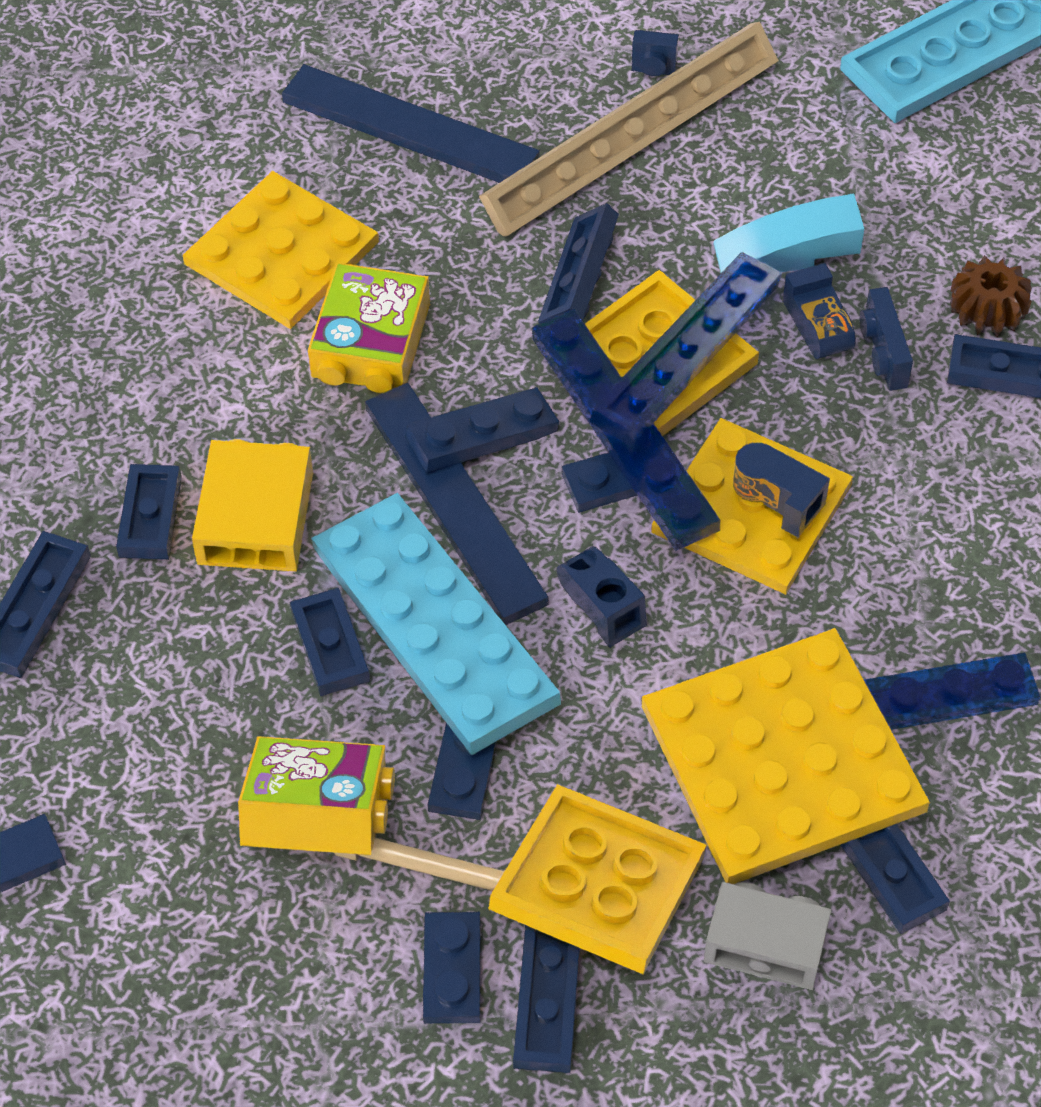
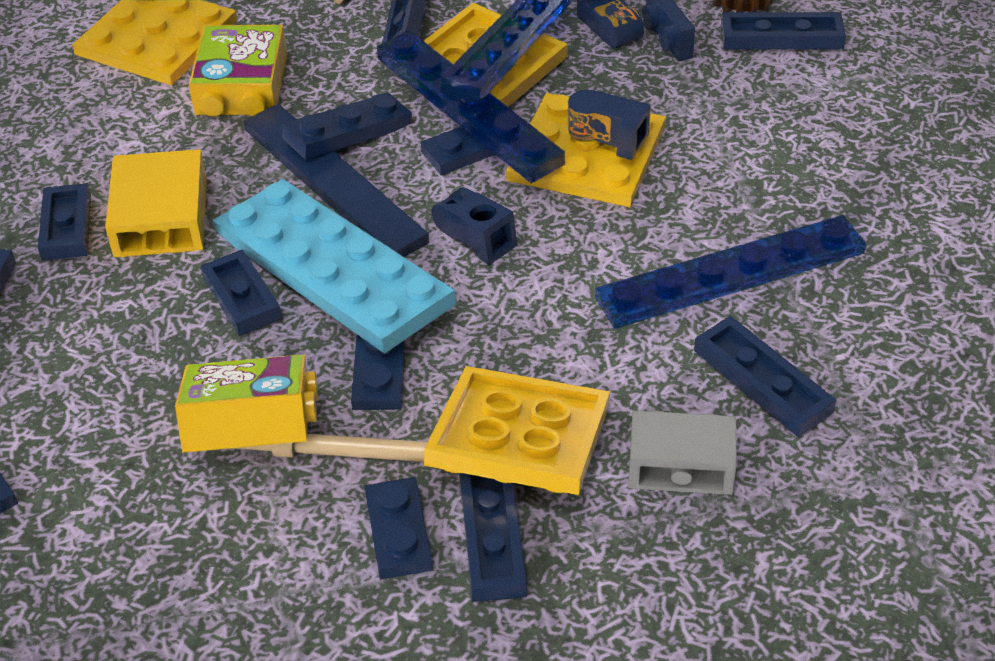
camera: 10 degrees left, 10 degrees down
(783, 756) = (661, 313): yellow plate -> none

